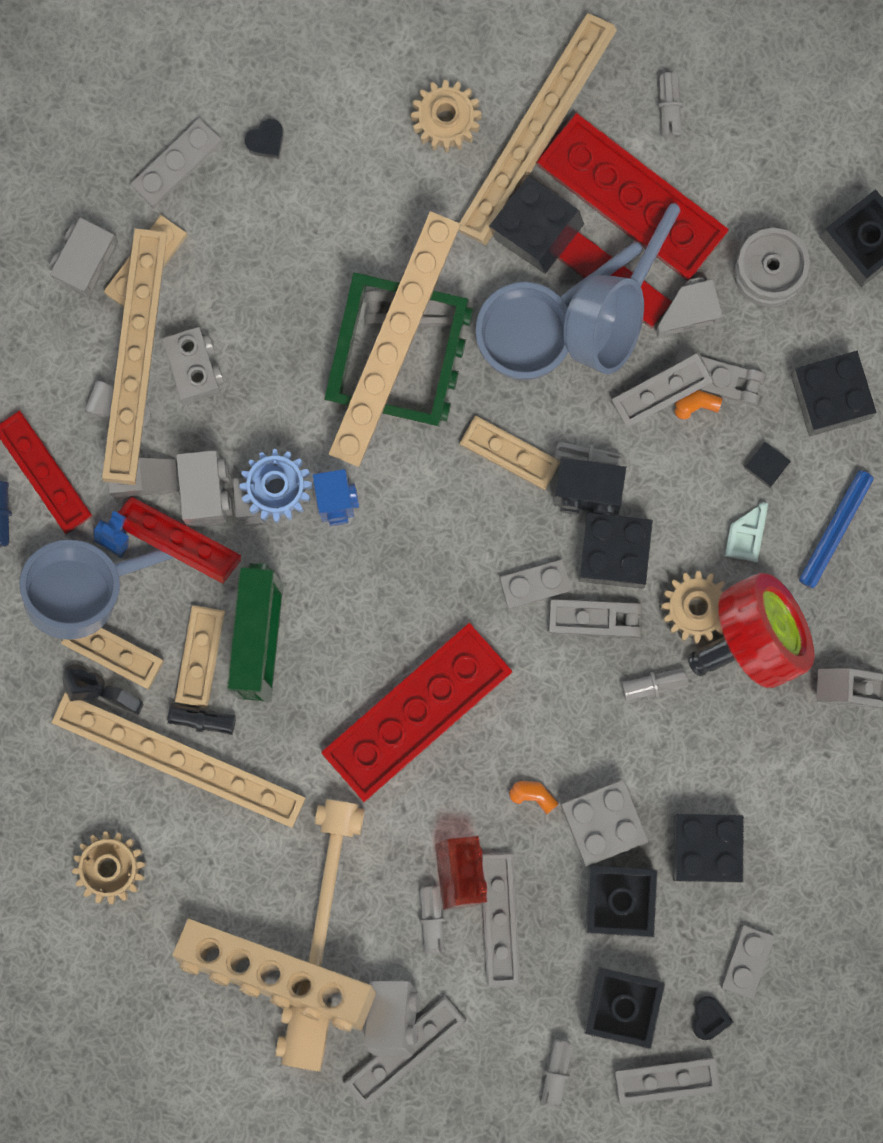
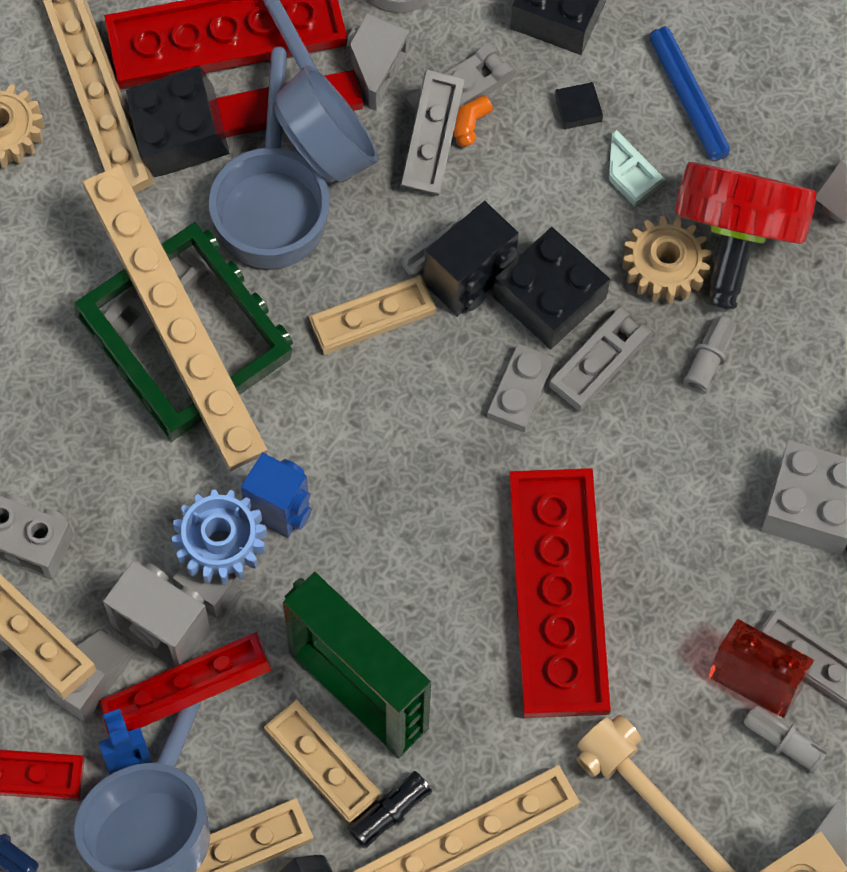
camera: 60 degrees left, 15 degrees down
(533, 792) = (728, 543): orange arm -> none

